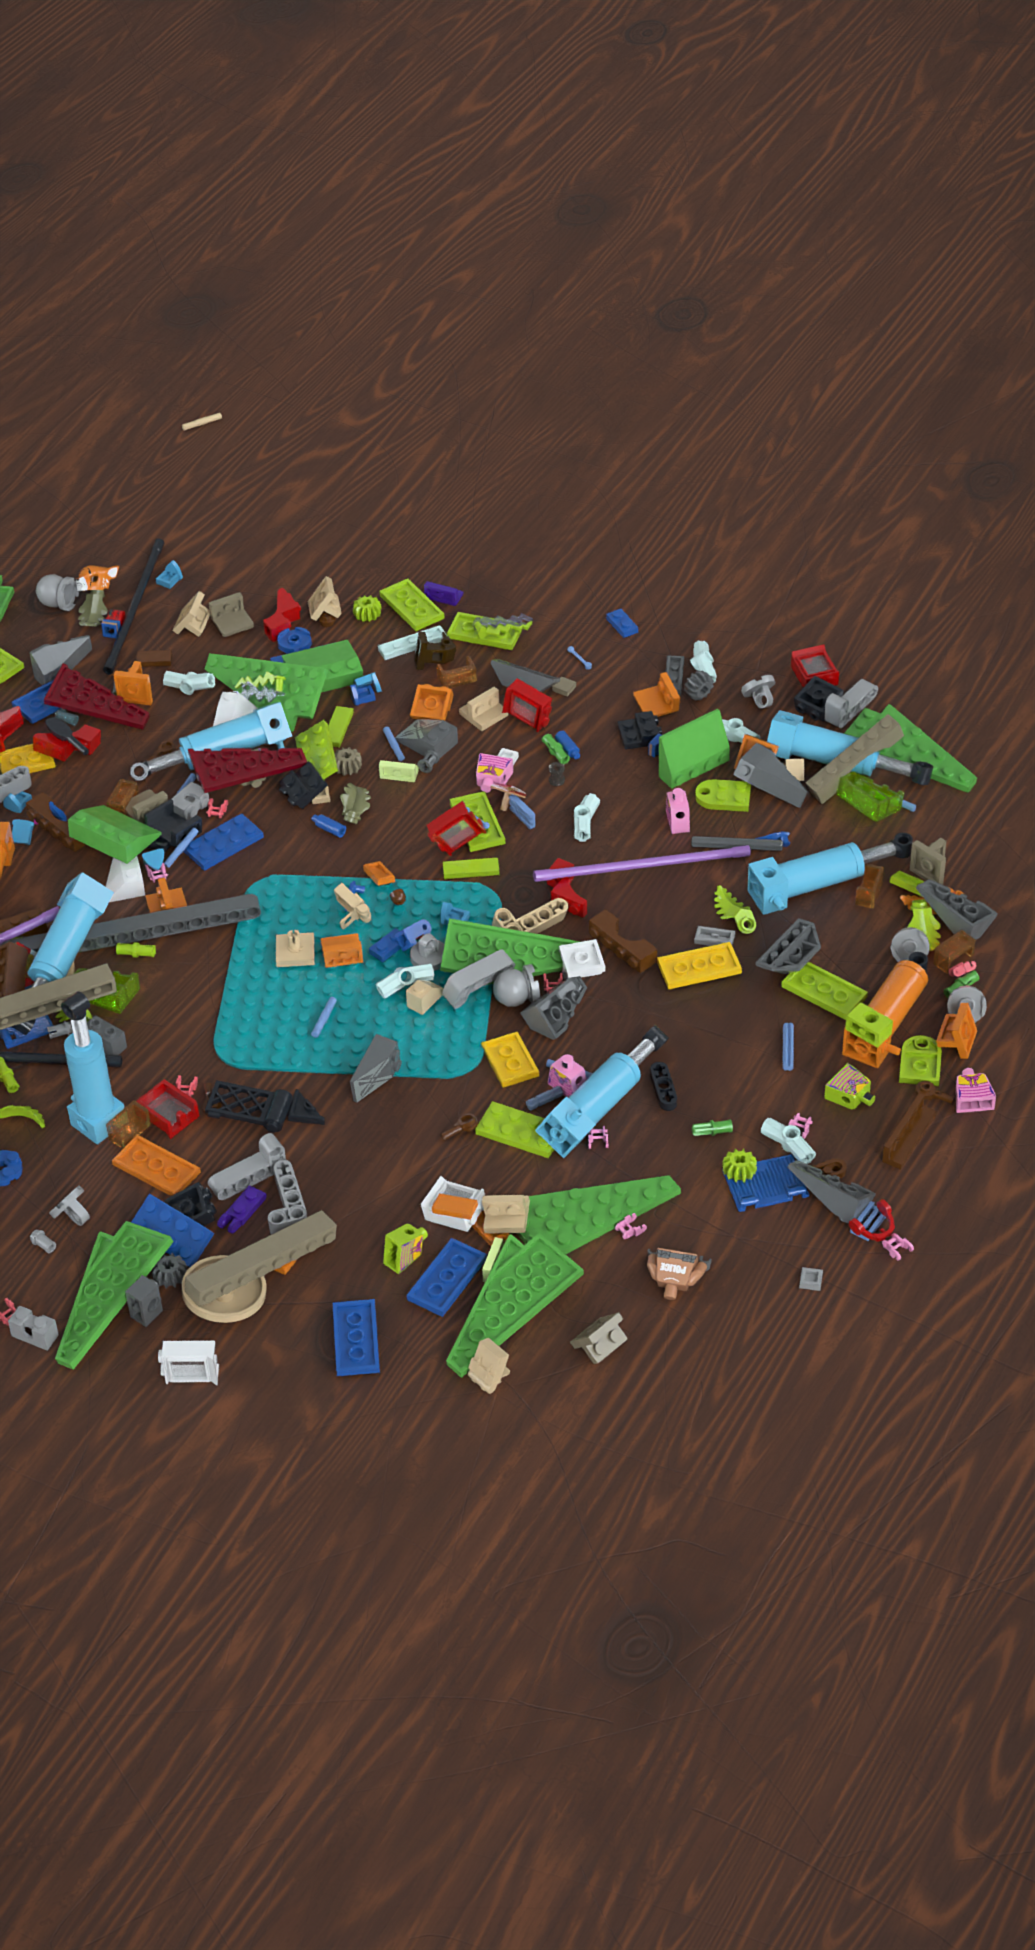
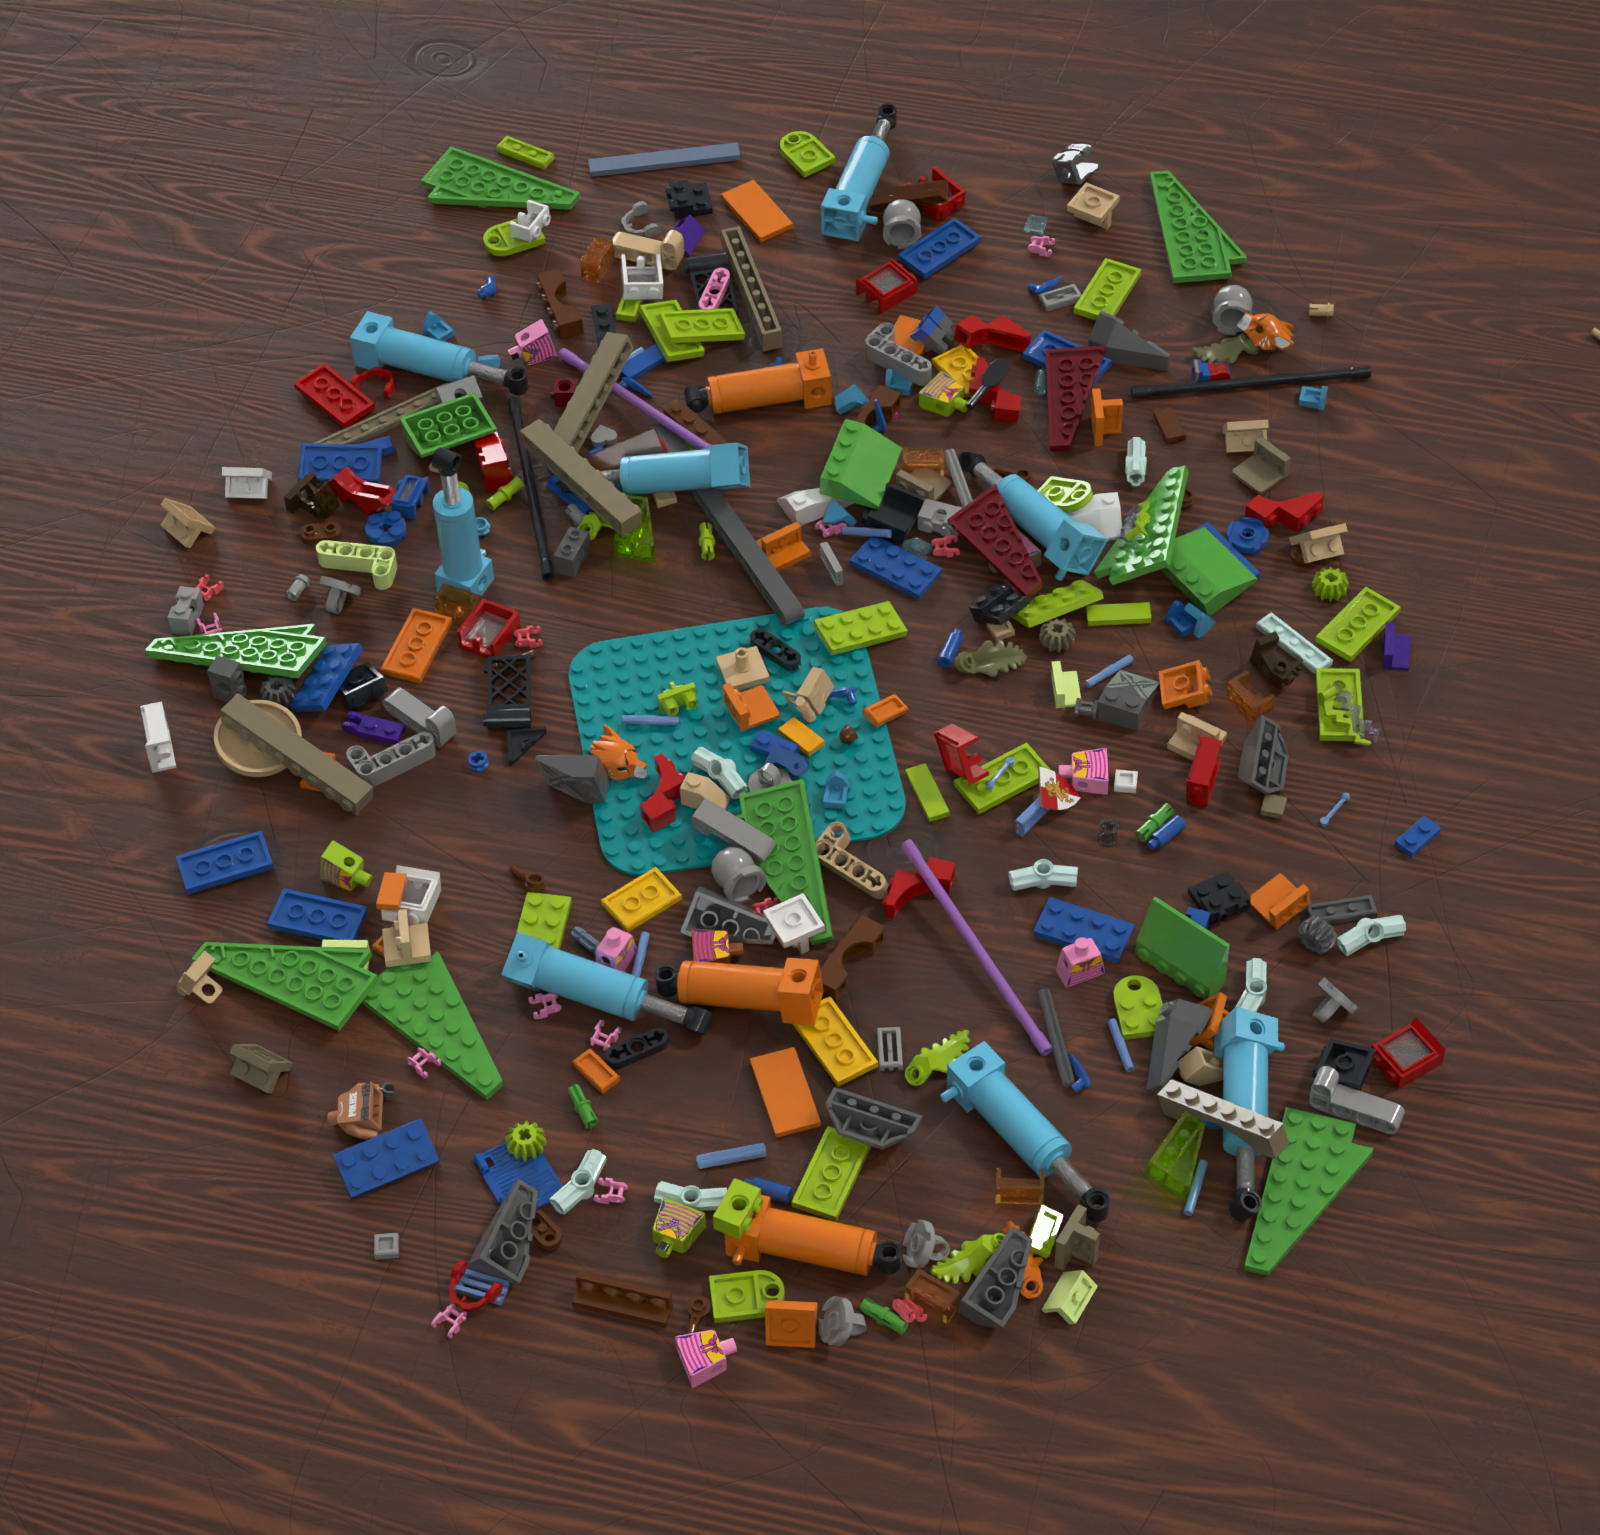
camera: 75 degrees right, 5 degrees up
(36, 1098) = (482, 526): none -> medium azure plate
(41, 1175) = (359, 557): none -> yellowish green beam
(51, 774) = (943, 395): none -> lime torso
(58, 1310) = (216, 624): none -> bright pink piece
(83, 548) = (1321, 310): none -> tan pin
(166, 781) = (958, 477): none -> light grey axle
(203, 719) = (1067, 493): none -> lime tile
(205, 876) = (831, 564): none -> light grey tile
(211, 822) = (917, 546): none -> clear light blue tile
(284, 871) = (860, 628): none -> lime plate
(296, 920) = (778, 658): none -> black beam
(303, 993) = (677, 696): none -> lime hips
(313, 1147) = (482, 764): none -> blue bush
(359, 1037) = (618, 753): none -> orange piece
(381, 927) = (800, 734): none -> light orange tile
(404, 1012) = (660, 808): none -> red arch
(584, 1021) = (714, 946): none -> torso
(639, 809) = (1067, 922): none -> blue plate
(640, 1108) = (611, 1038): none -> bright pink piece
(657, 968) = (789, 990): none -> orange piece
(676, 1116) = (596, 1071): none -> orange tile
(726, 1262) = (386, 1158): none -> blue plate
(736, 1004) = (785, 1092): none -> orange tile
(755, 811) = (1120, 1045): none -> medium blue piece
(826, 1071) = (704, 1198): none -> light aqua piece
(828, 1028) = (774, 1190): none -> blue cylinder
(969, 882) = (1070, 1295): none -> yellowish green panel

